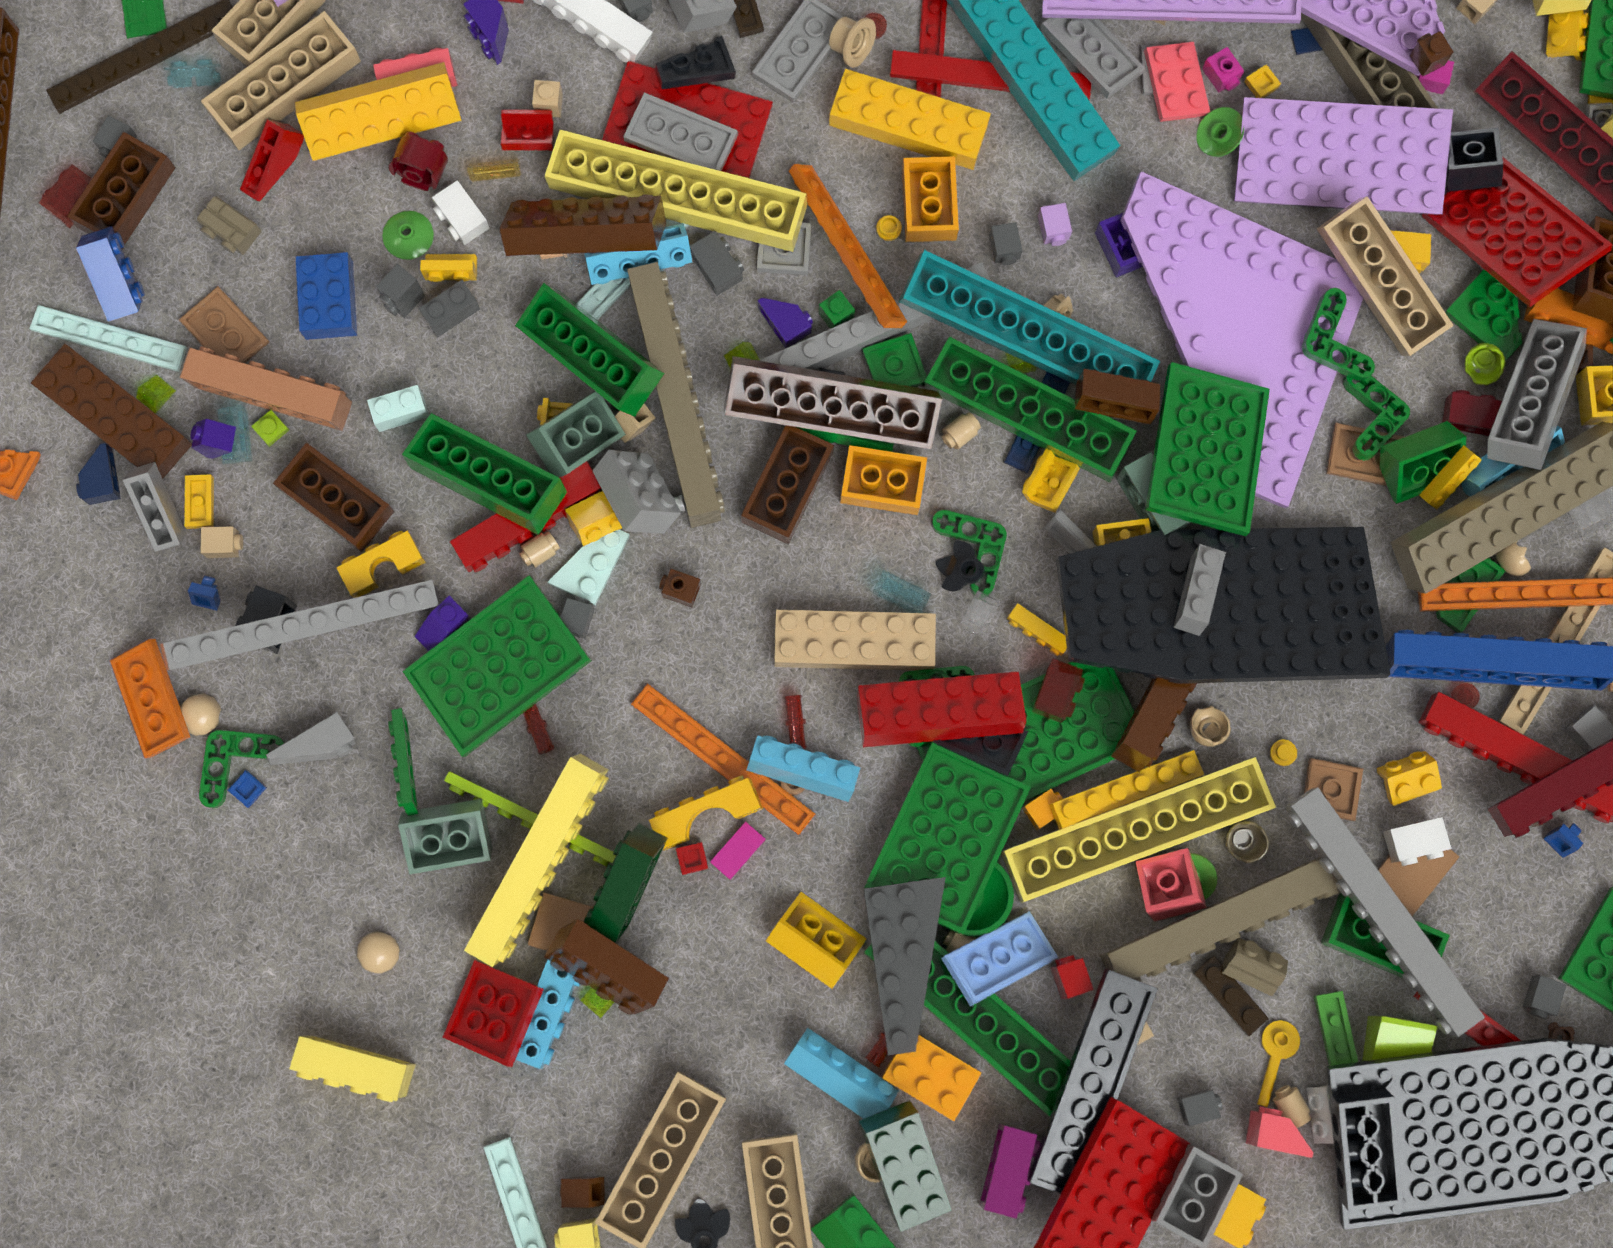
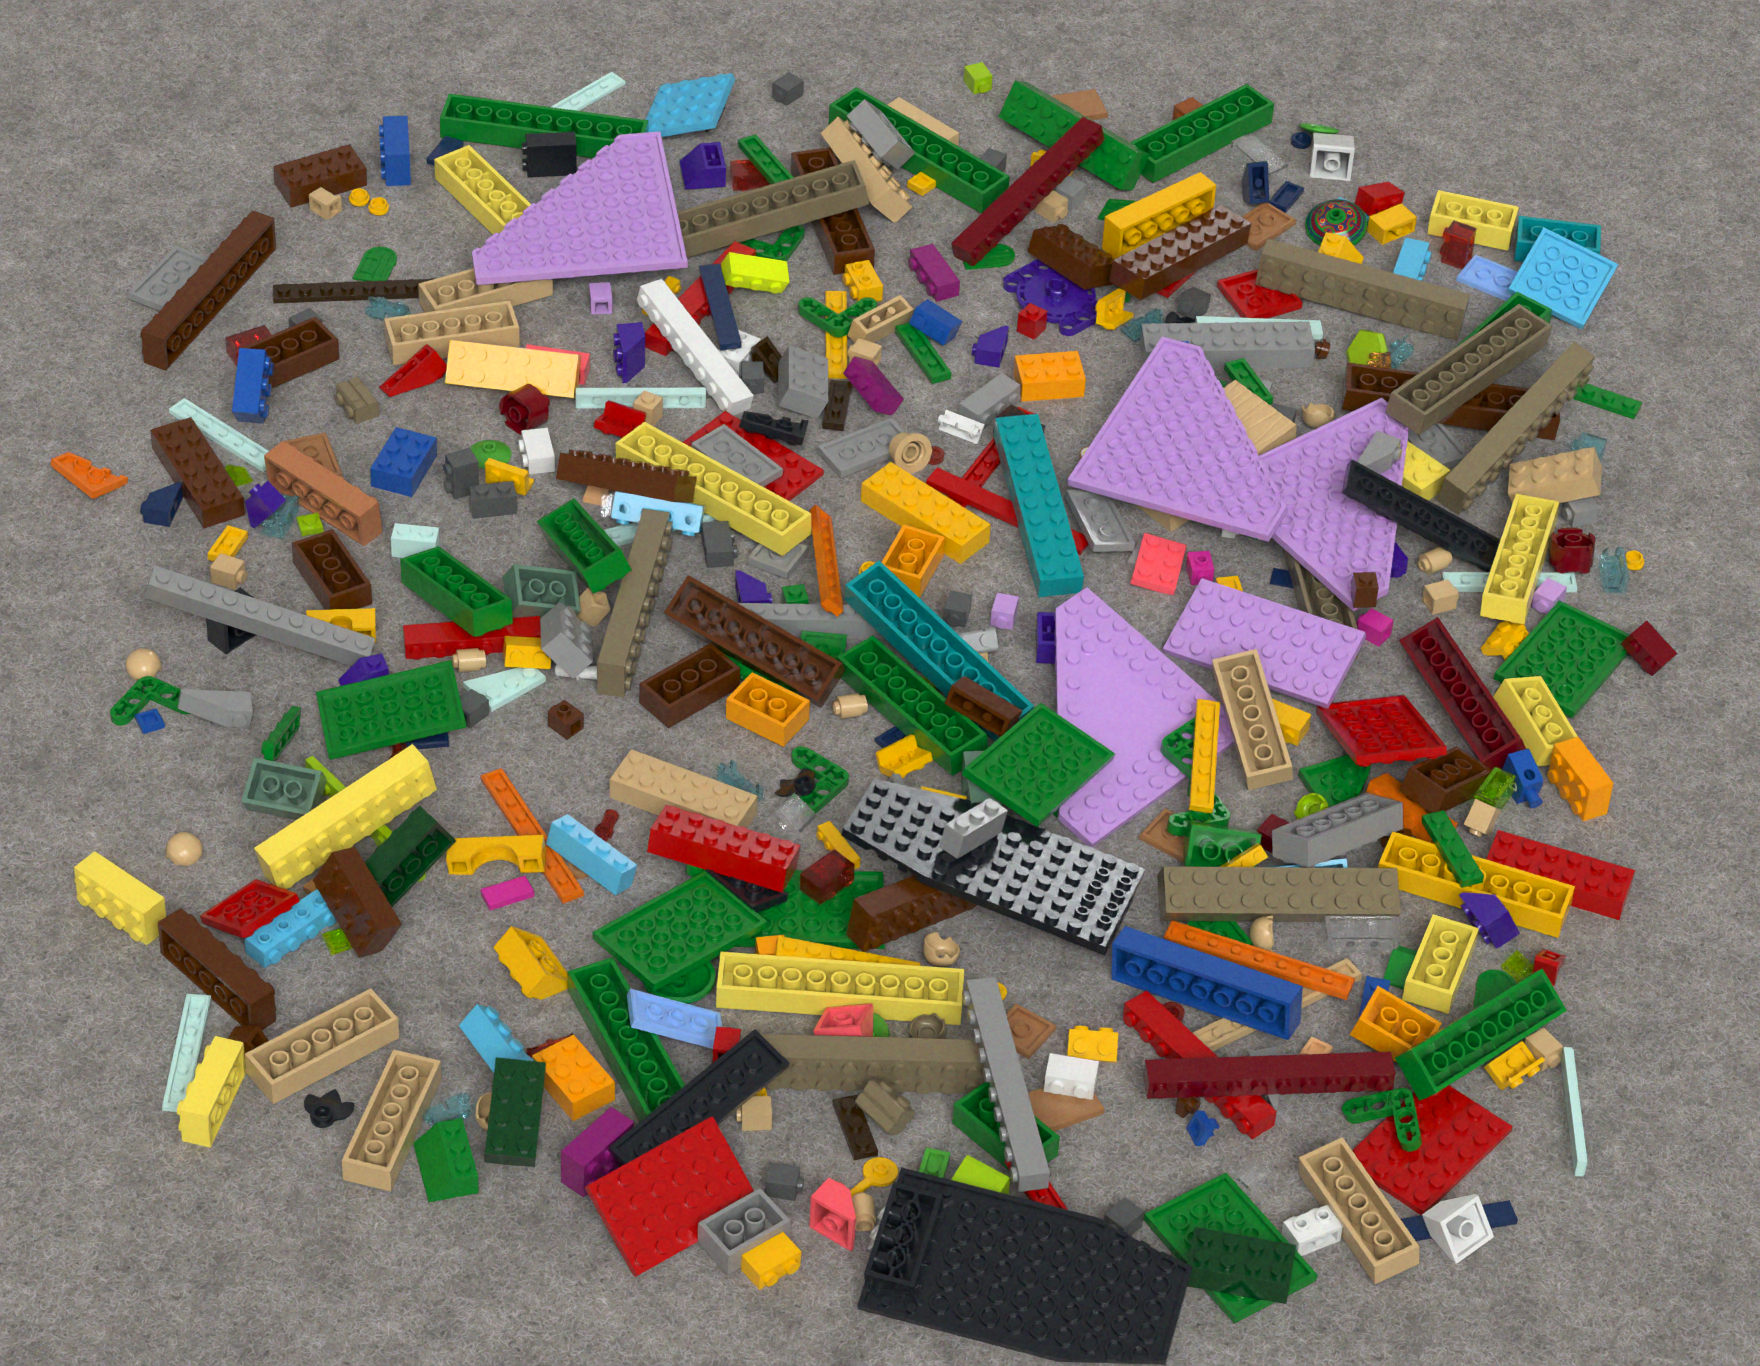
camera: 25 degrees right, 35 degrees down
(150, 698) = (113, 640): orange tile -> none
(154, 506) = (194, 526): light grey brick -> none
(494, 170) = (580, 437): clear yellow slope -> none
(503, 1117) = (216, 970): none -> reddish brown brick
(525, 86) = (672, 397): none -> light aqua tile
(692, 858) = (467, 882): red plate -> none
(827, 1192) = (457, 1106): none -> clear light blue hinge
(903, 939) = (598, 975): dark grey wing -> none
(1048, 284) = (981, 640): none -> light grey brick
(1214, 125) = (1174, 602): bright green dish -> none
(1356, 347) = (1204, 756): none -> yellow tile
(1475, 160) = (1373, 680): black brick -> none

